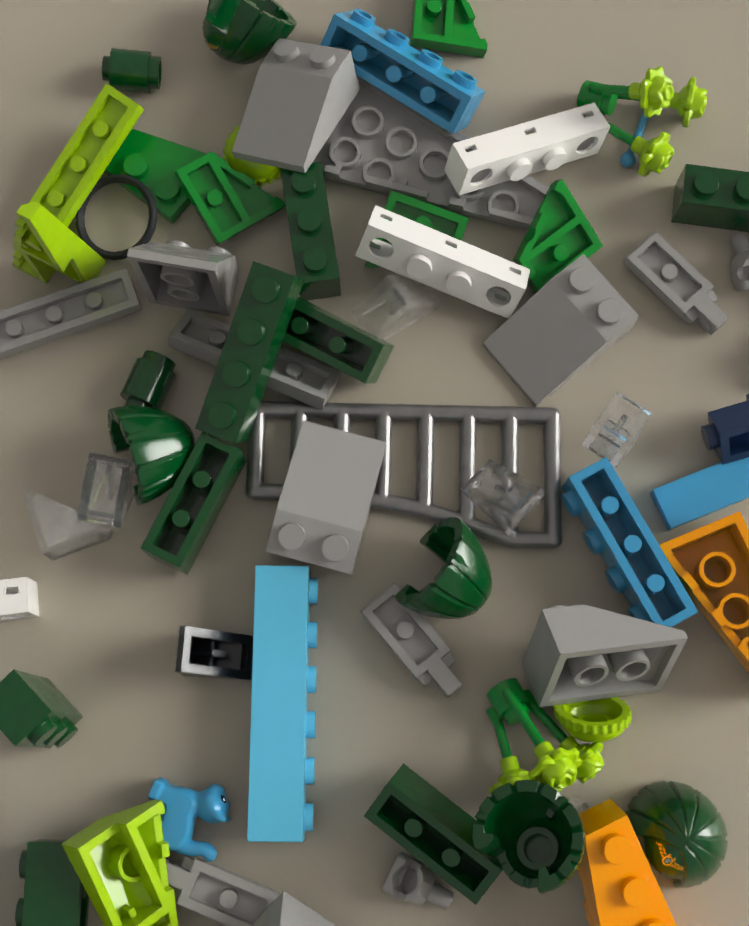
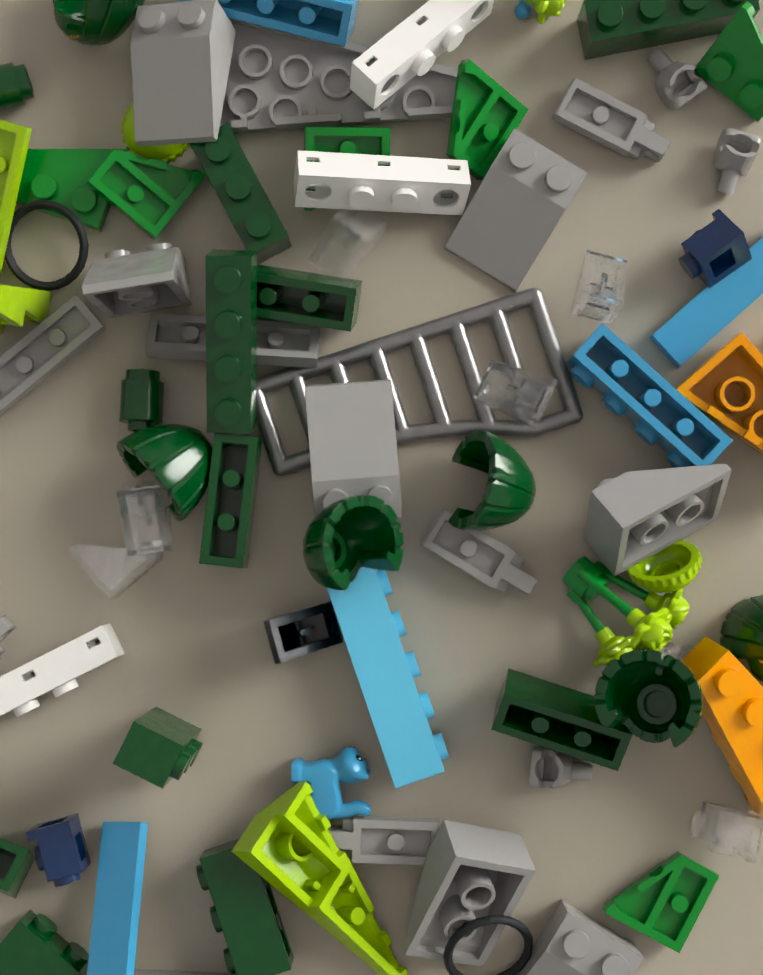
camera: 20 degrees left, 10 degrees up
(293, 572) = (352, 536): none -> dark green hair

